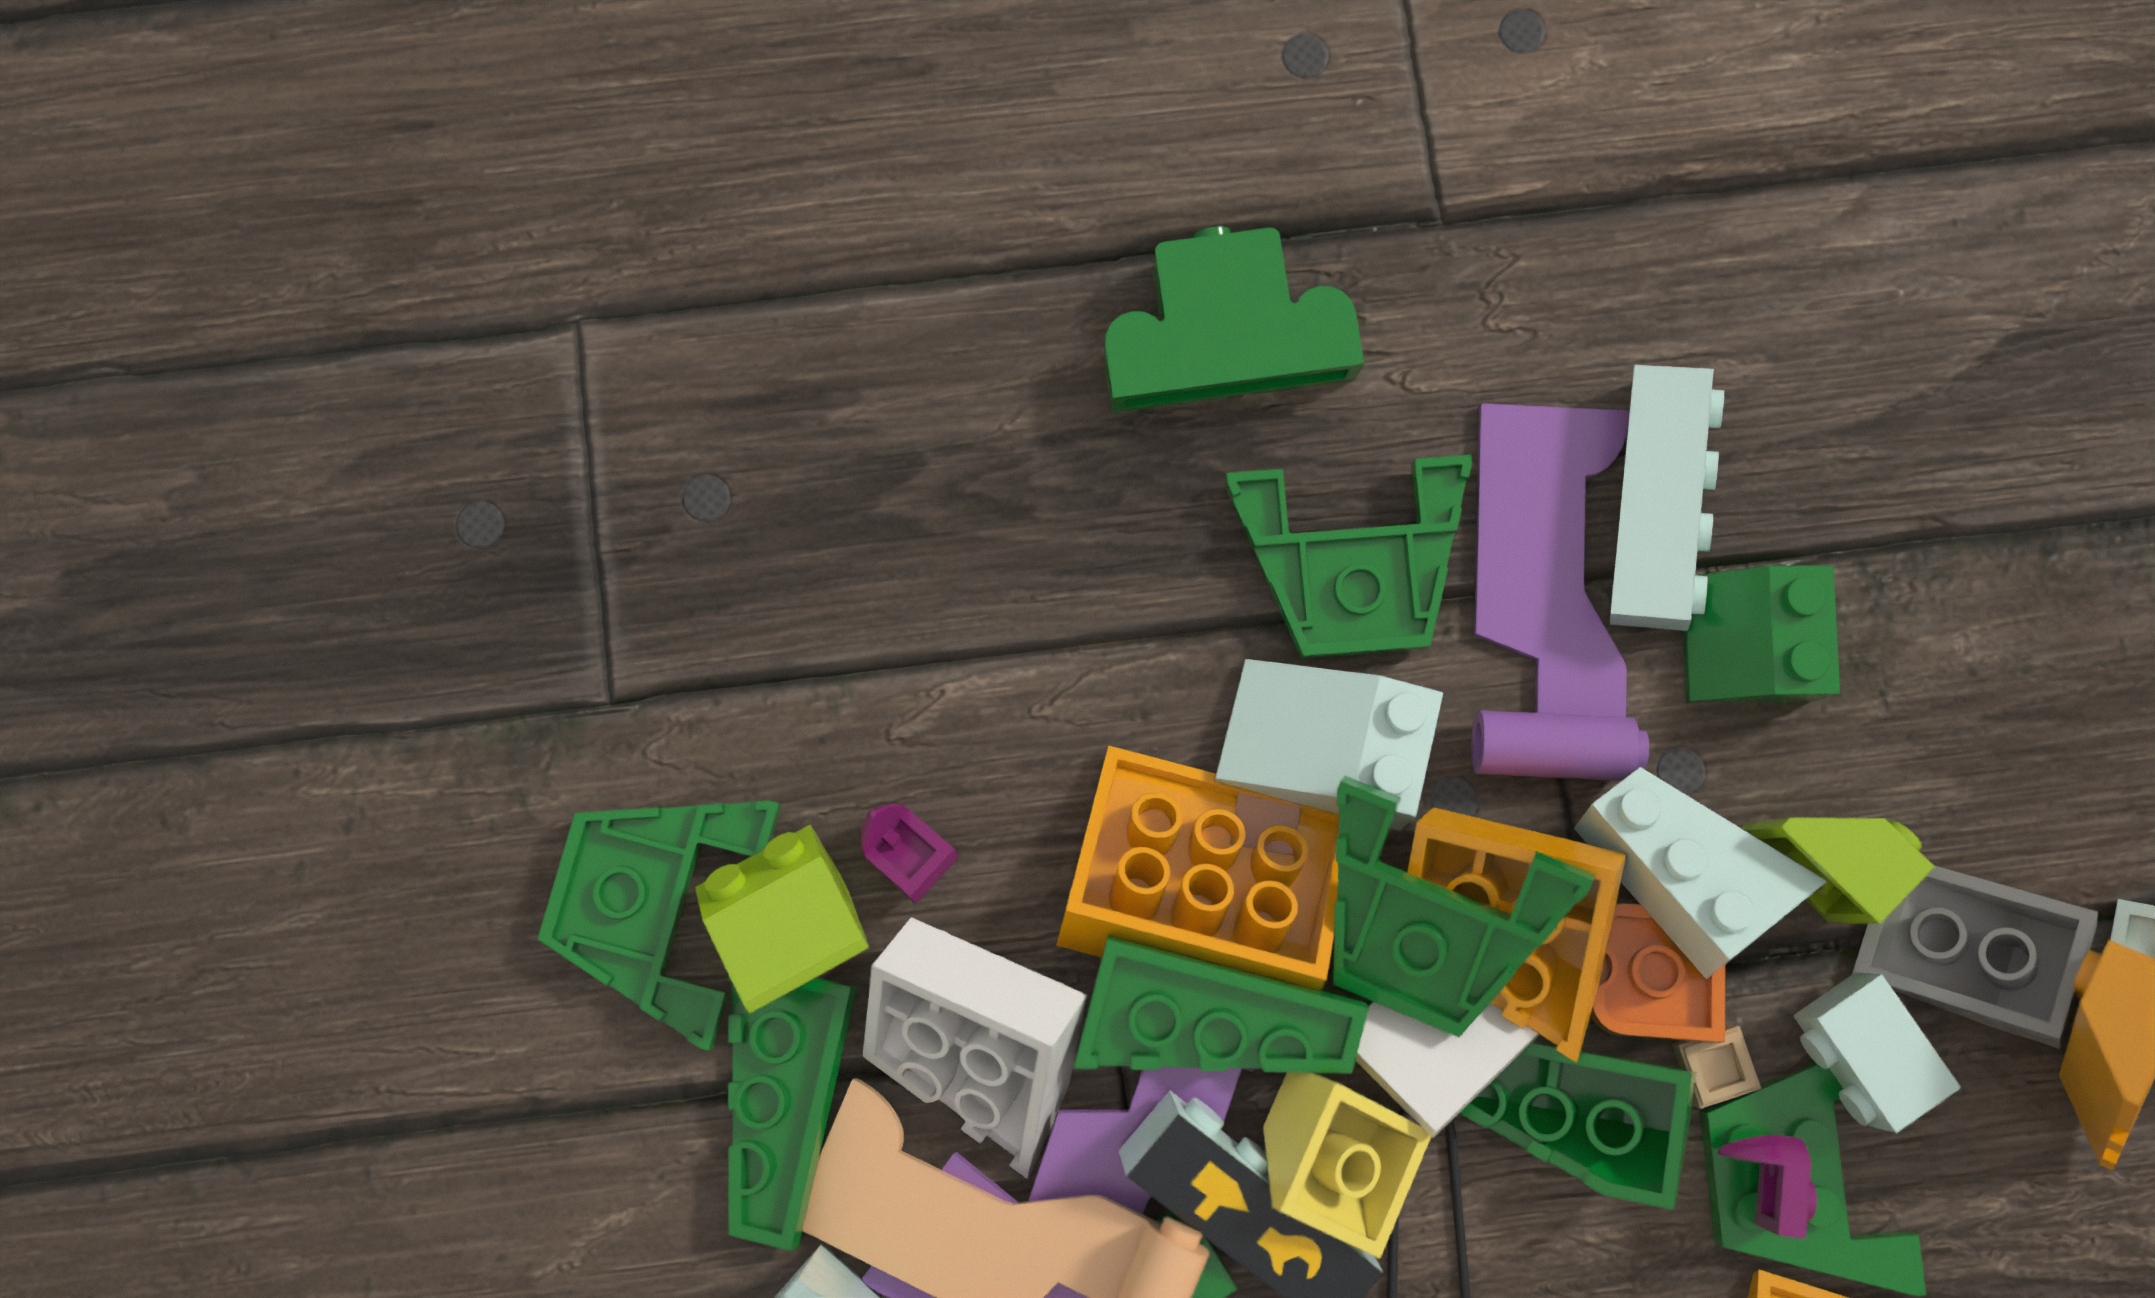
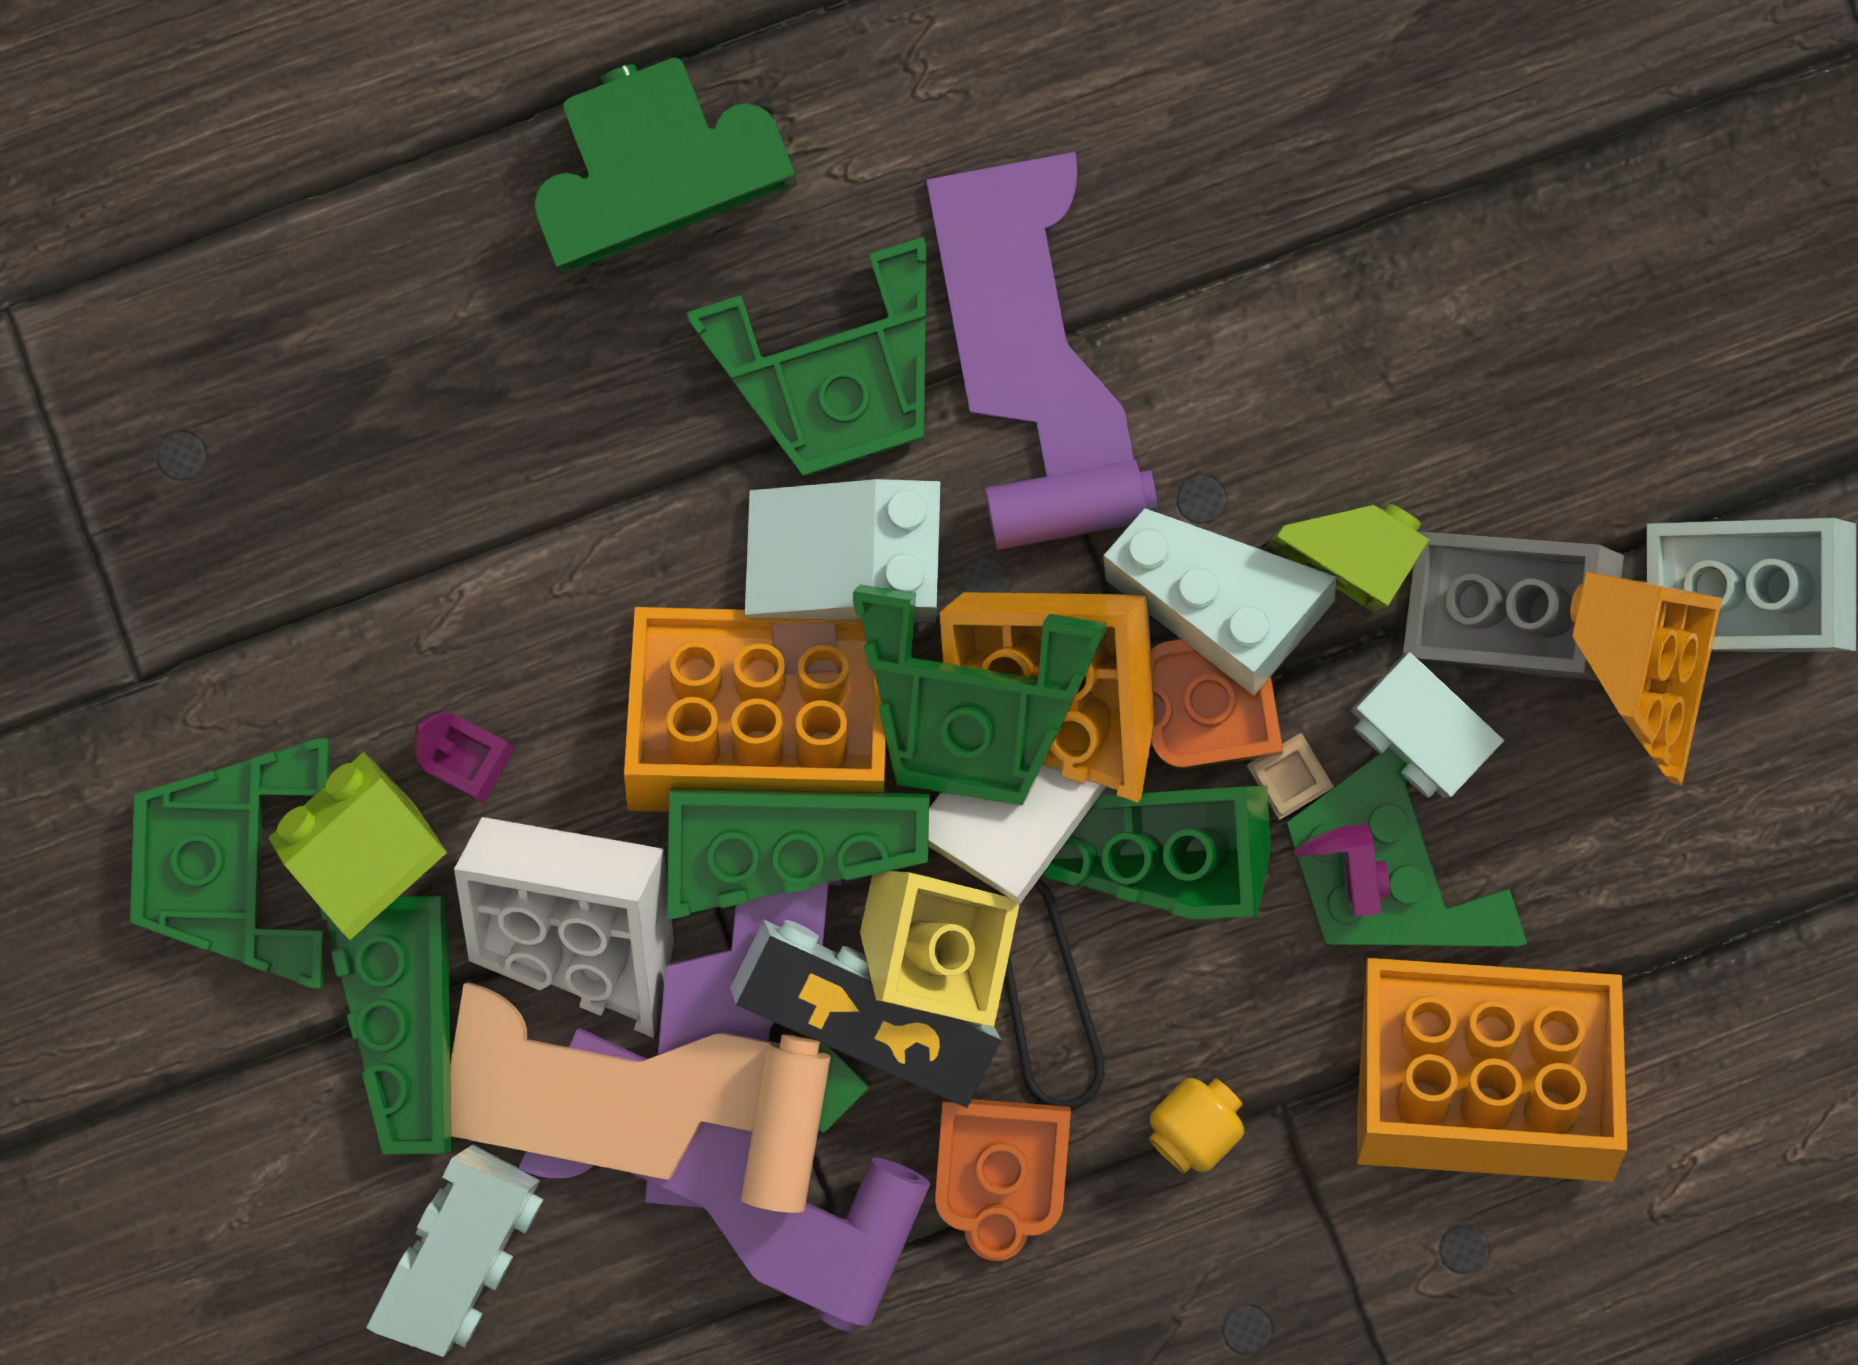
camera: 10 degrees left, 5 degrees up
(1663, 497) = (1120, 235): light aqua brick -> none
(1764, 637) = (1242, 349): green slope -> none

